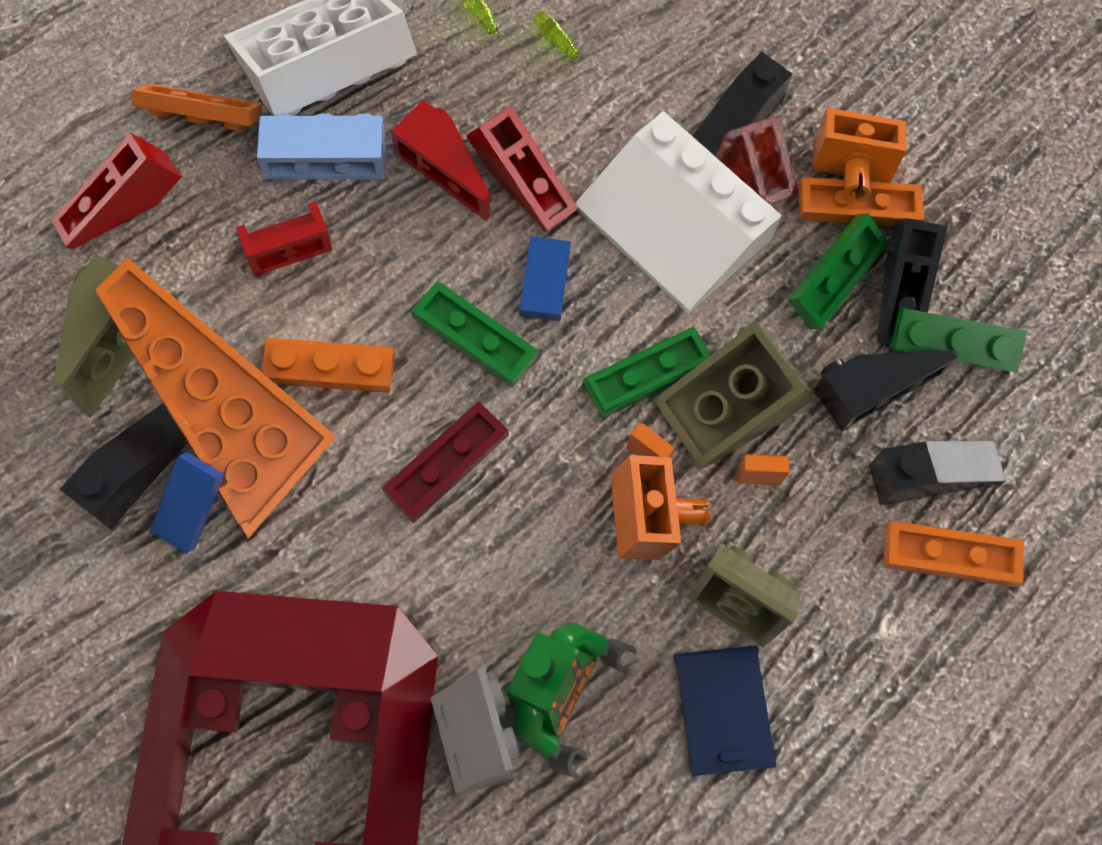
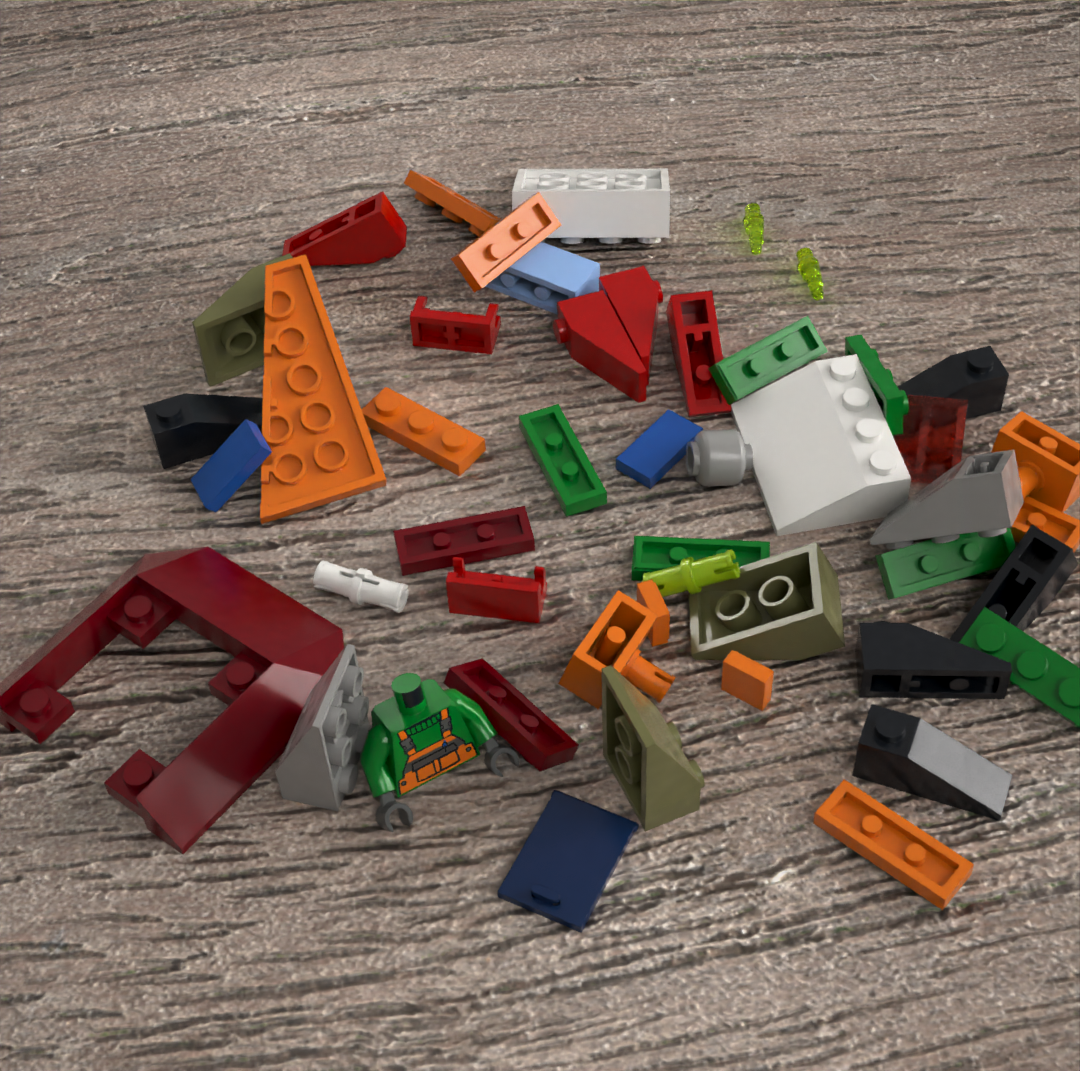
camera: 40 degrees right, 20 degrees down
(289, 136) = (506, 242): none -> plate
(387, 557) = (361, 586): none -> white pin
(429, 196) = (600, 342): none -> red slope
(508, 497) = (496, 594): none -> red hinge
(582, 146) = (767, 360): none -> green tile
(601, 610) = (513, 715): none -> dark red plate
(606, 267) = (718, 457): none -> light grey head
(661, 396) = (694, 574): none -> lime pin
(718, 143) = (889, 397): none -> green plate
(833, 226) = (971, 497): none -> light grey slope

